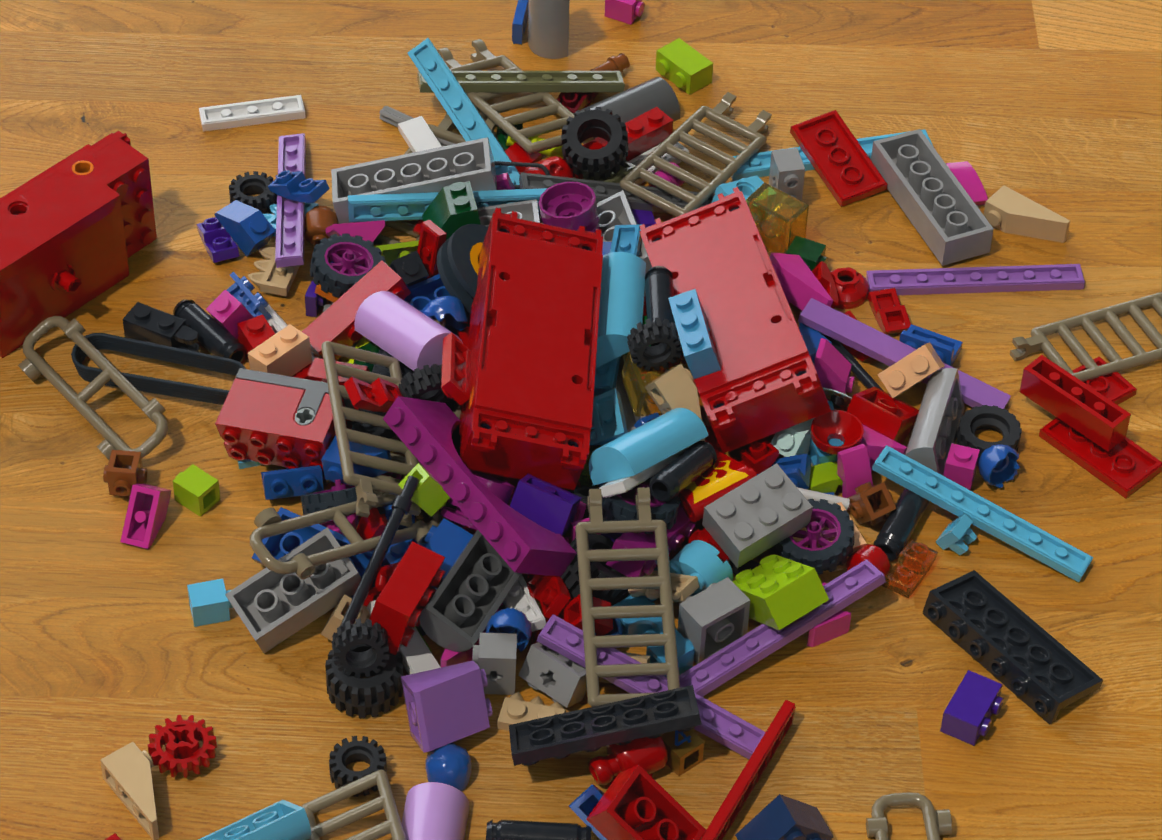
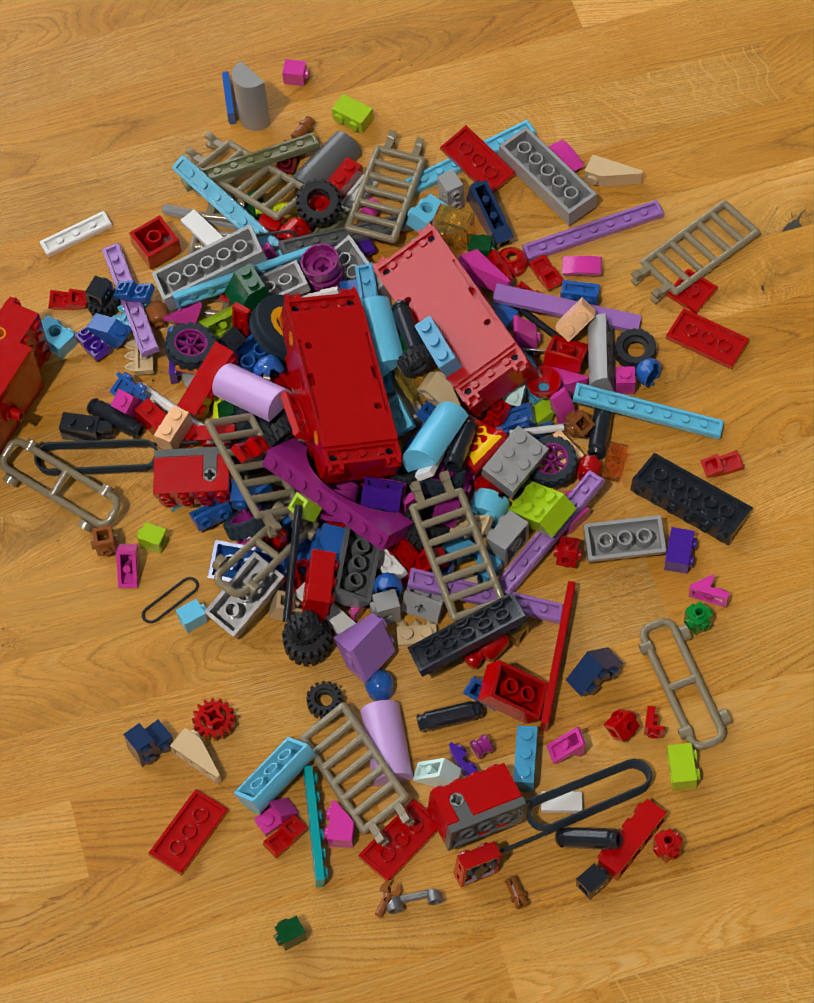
camera: 10 degrees left, 15 degrees up
(67, 749) = (148, 742): none -> dark blue brick
(173, 220) = (64, 342): none -> medium azure brick
(184, 568) = (166, 593): none -> black piece
(205, 184) = (70, 300): none -> red slope
(250, 175) = (99, 291): none -> black brick
(352, 139) = (155, 242): none -> red brick
(798, 664) = (567, 552): none -> red brick
(832, 219) = (489, 213): none -> dark blue slope
(891, 667) = (624, 538): none -> light grey brick
(950, 315) = (583, 265): none -> dark pink slope
(955, 534) = (634, 429): medium azure tile -> none
(971, 806) = (698, 618): none -> green brick
(995, 774) = (703, 591): none -> dark pink slope
(1075, 403) = (684, 313): red brick -> none
(1076, 616) = (723, 465): none -> red slope

